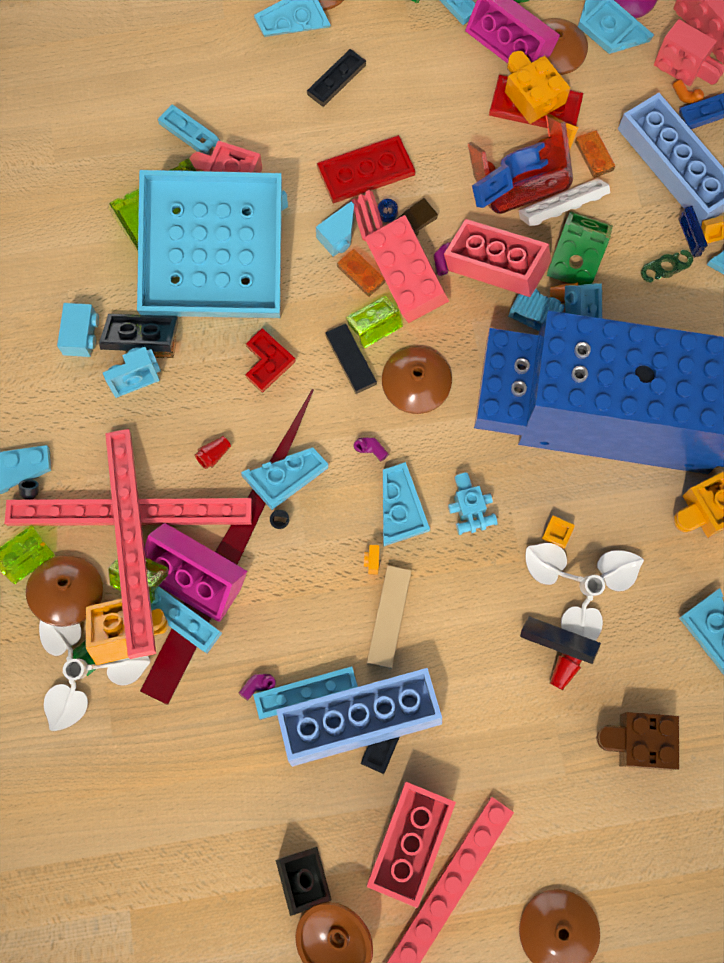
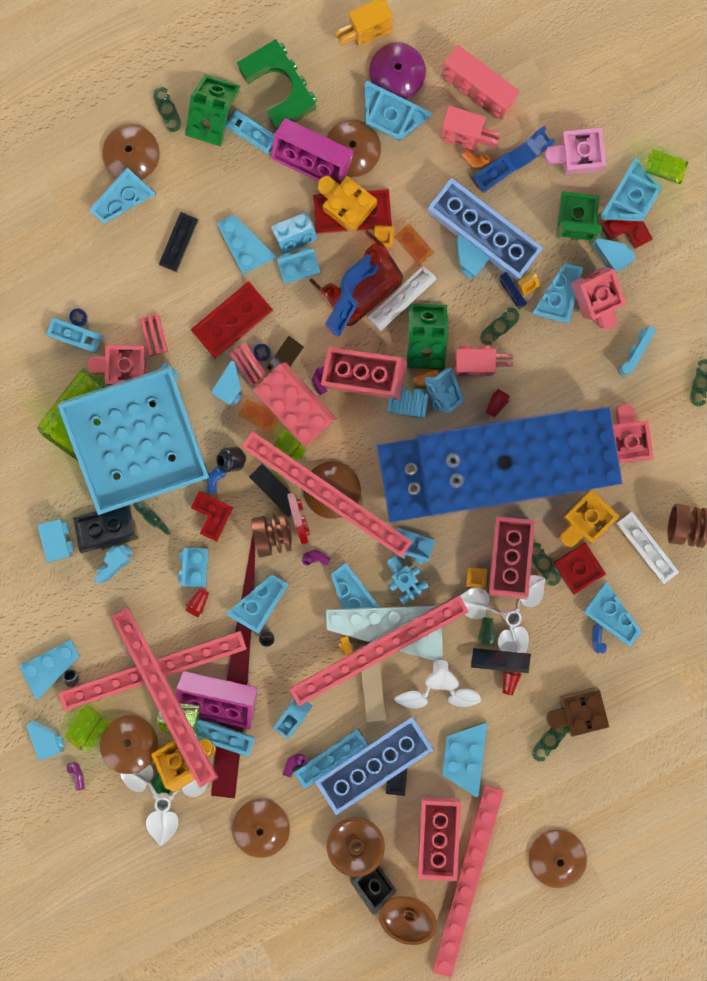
camera: 15 degrees left, 15 degrees up
(196, 341) = (151, 518): none -> clear green piece
(197, 109) = (81, 312): none -> clear blue bush
(203, 760) = (262, 815): none -> dark orange dish
(223, 411) = (193, 567): none -> medium azure bracket
(276, 142) = (150, 319): none -> coral tile
(276, 624) = (292, 718): none -> medium azure slope
(282, 322) = (214, 476): none -> blue arm
(298, 798) = (341, 844): none -> dark orange dish
(312, 305) = (231, 459): none -> black head
(329, 399) = (271, 534): none -> copper wheel
(368, 392) = (299, 521): none -> plate
(407, 102) = (244, 245): none -> medium azure wing
(412, 374) = (326, 494): none -> coral plate
(412, 572) = (378, 650): none -> coral plate
(448, 561) = (374, 623): none -> light aqua wing
(456, 133) = (298, 265): none -> medium azure bracket
(466, 105) = (294, 232): none -> medium azure bracket
(477, 751) = (465, 757): none -> medium azure wing
(481, 626) = (440, 679): none -> white plant
(491, 471) = (419, 548): none -> medium azure bracket
(551, 603) = (487, 632): none -> clear green cone
(581, 768) = (547, 749): none -> clear green piece
(610, 518) = (511, 558): none -> coral brick
(634, 288) = (479, 361): none -> coral brick
(654, 553) = (551, 569): none -> clear green piece
(655, 184) = (470, 258): none -> medium azure slope
(688, 564) = (579, 568): none -> red tile
(688, 655) = (596, 640): none -> blue arm

